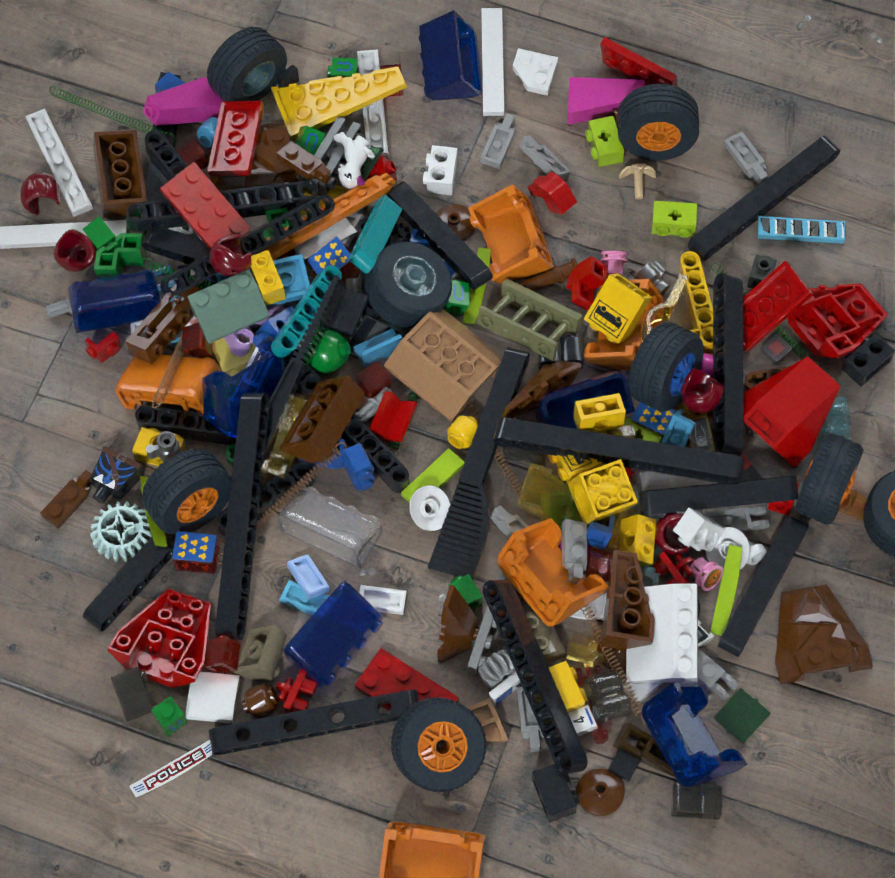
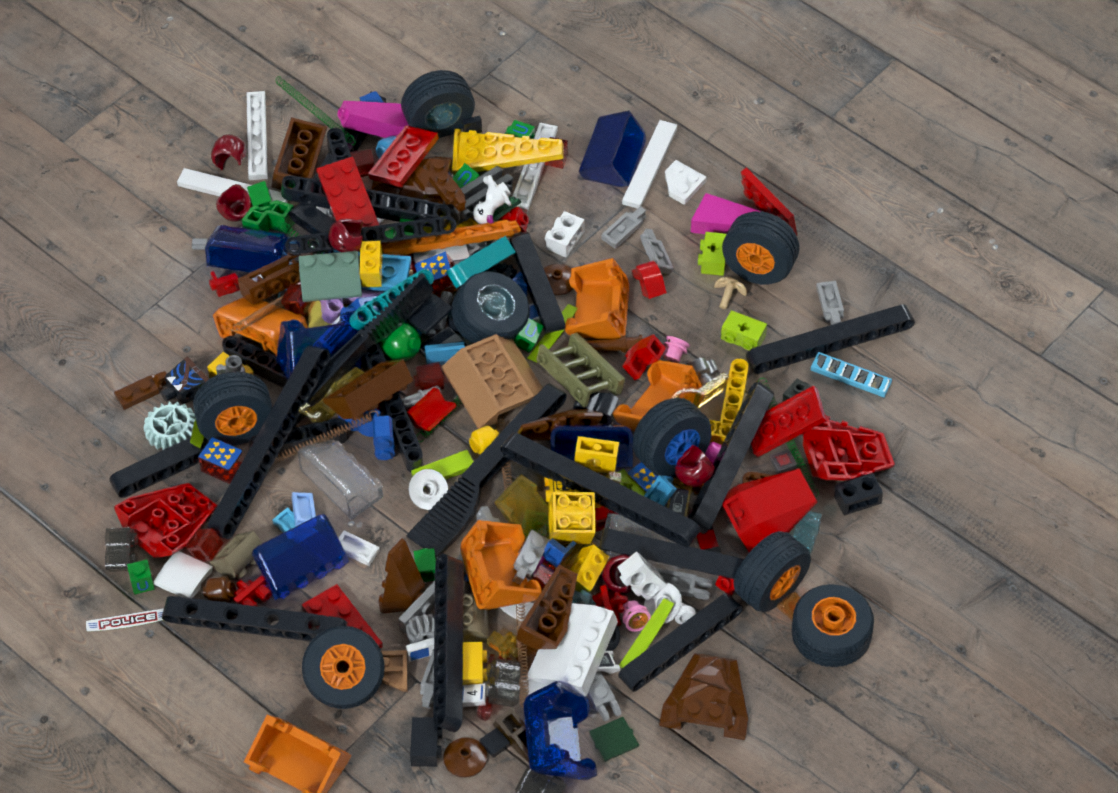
camera: 20 degrees right, 10 degrees down
(617, 308) = (657, 381): yellow brick -> none

